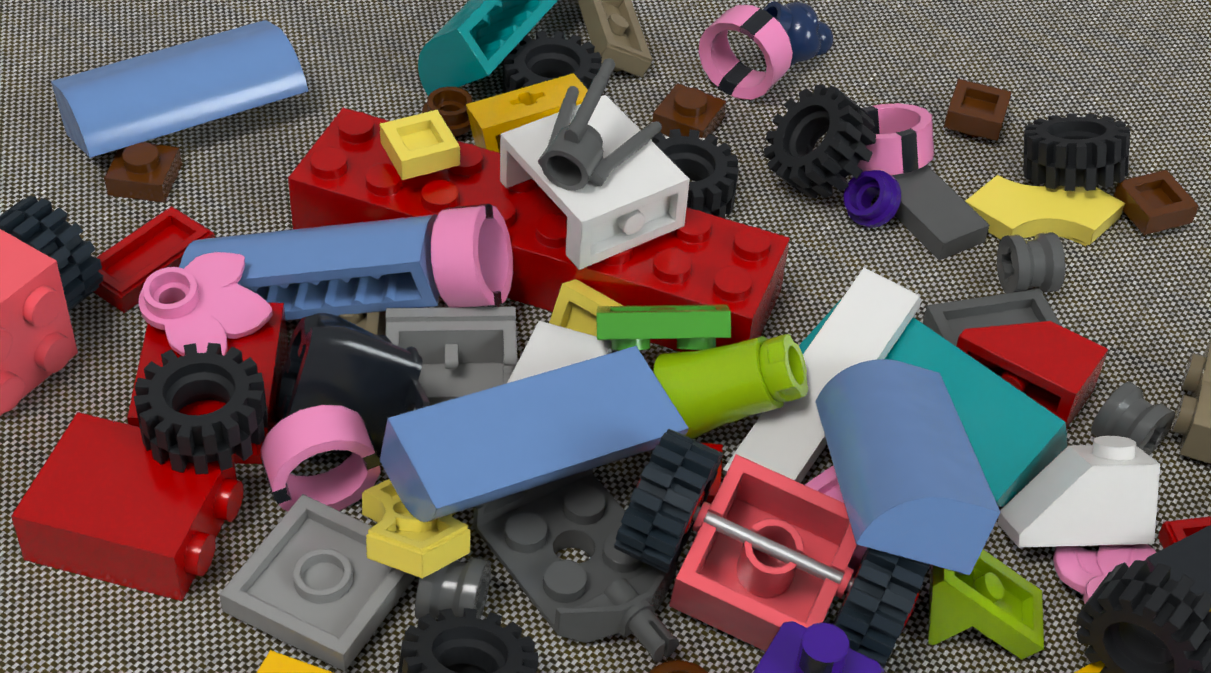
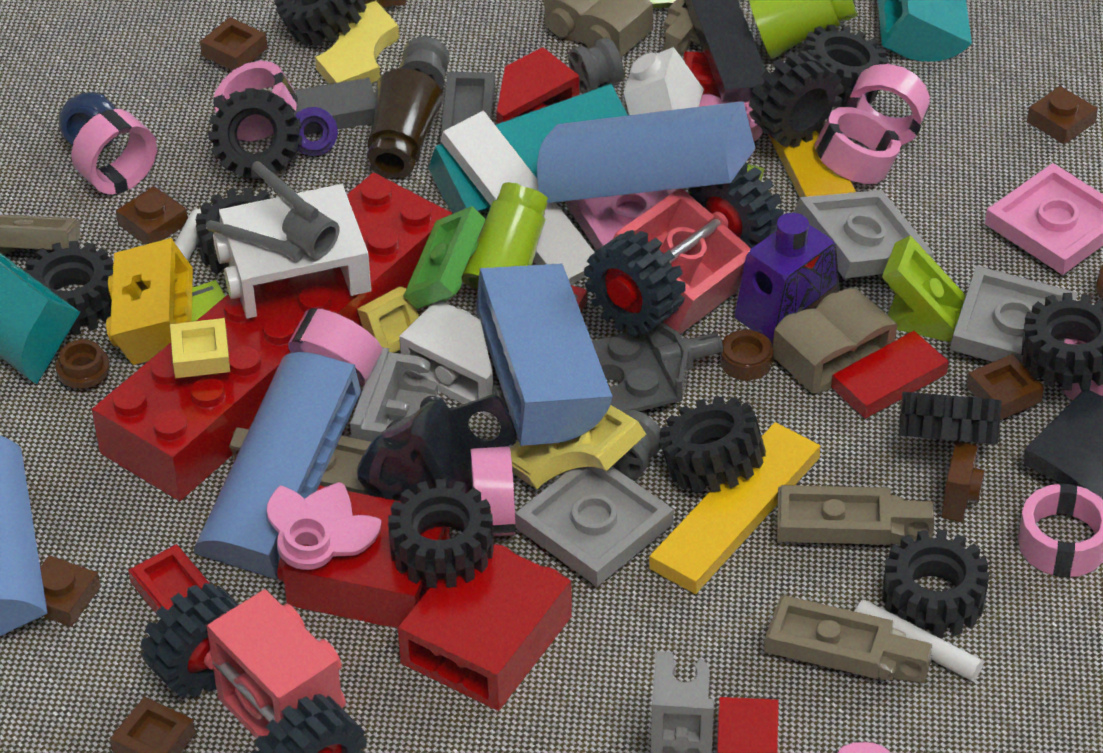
camera: 70 degrees left, 0 degrees up
(921, 258) = (401, 120): none -> dark brown plant

